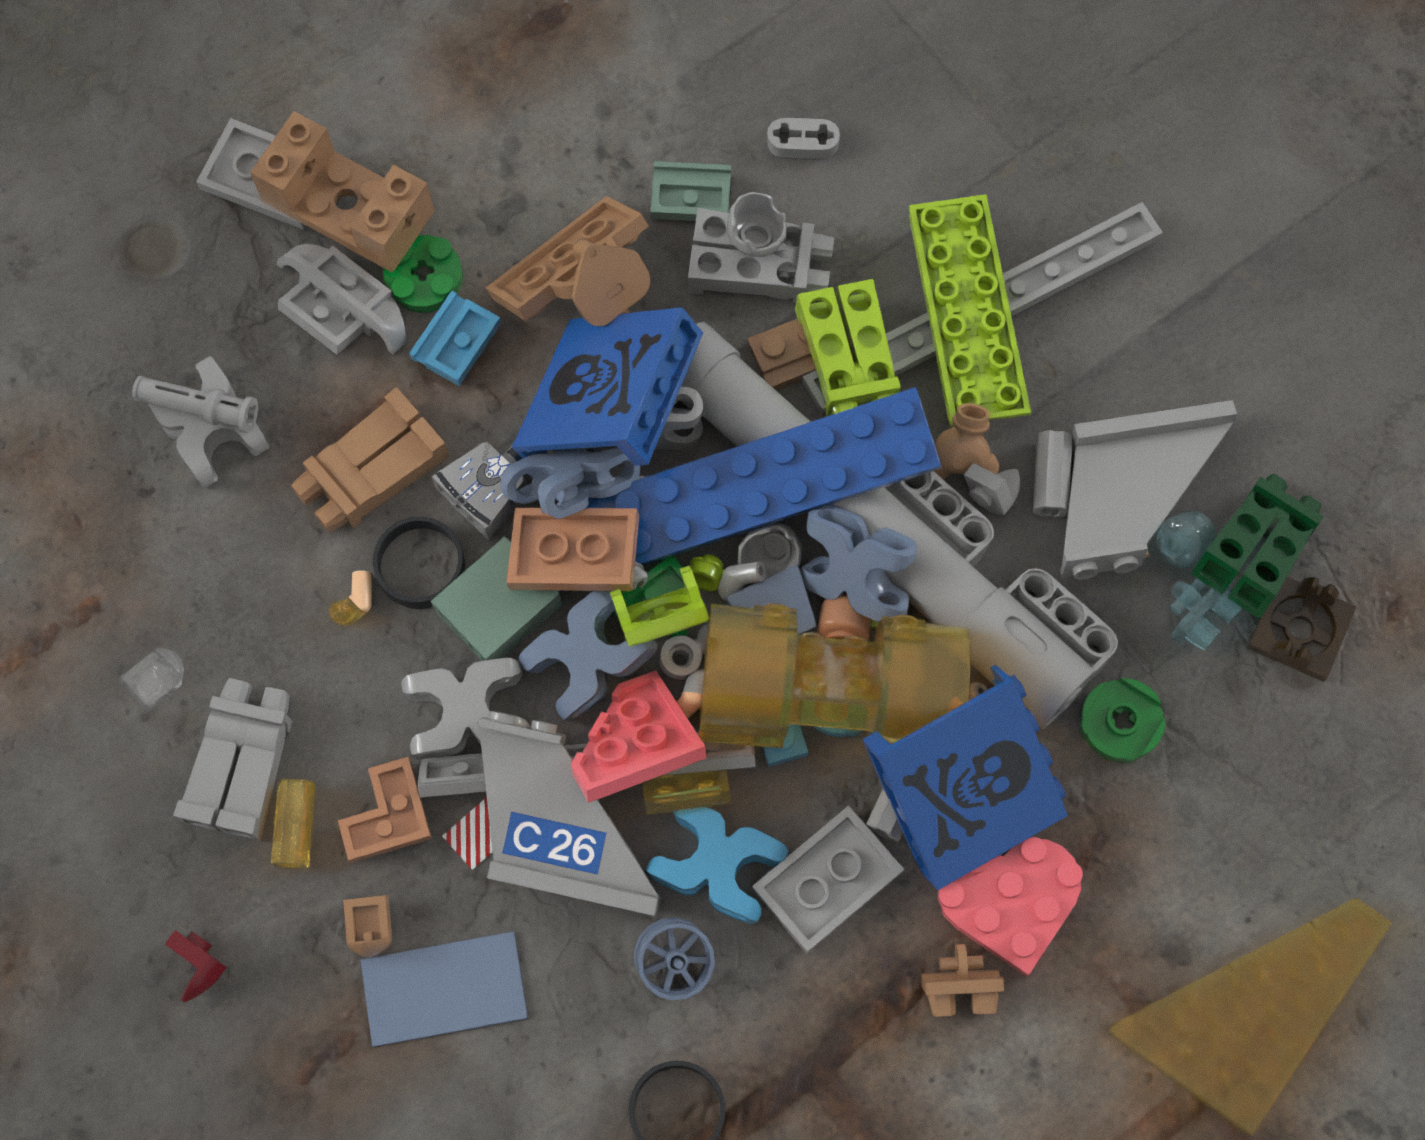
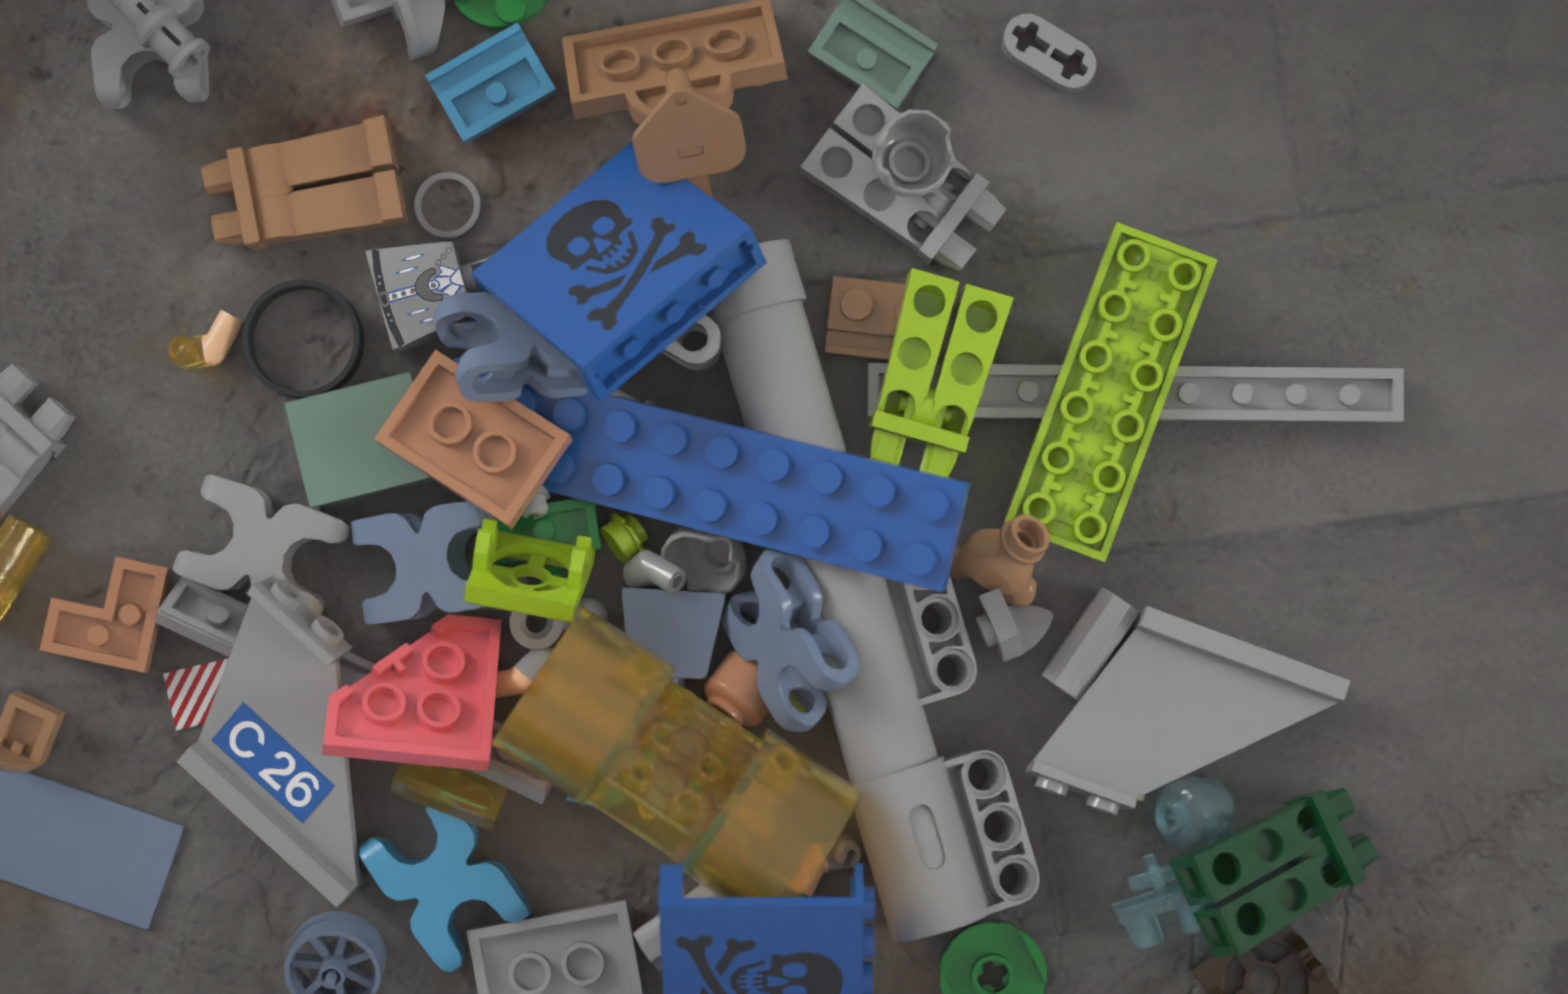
camera: 30 degrees right, 15 degrees up
(464, 410) = (447, 176): none -> light grey piece

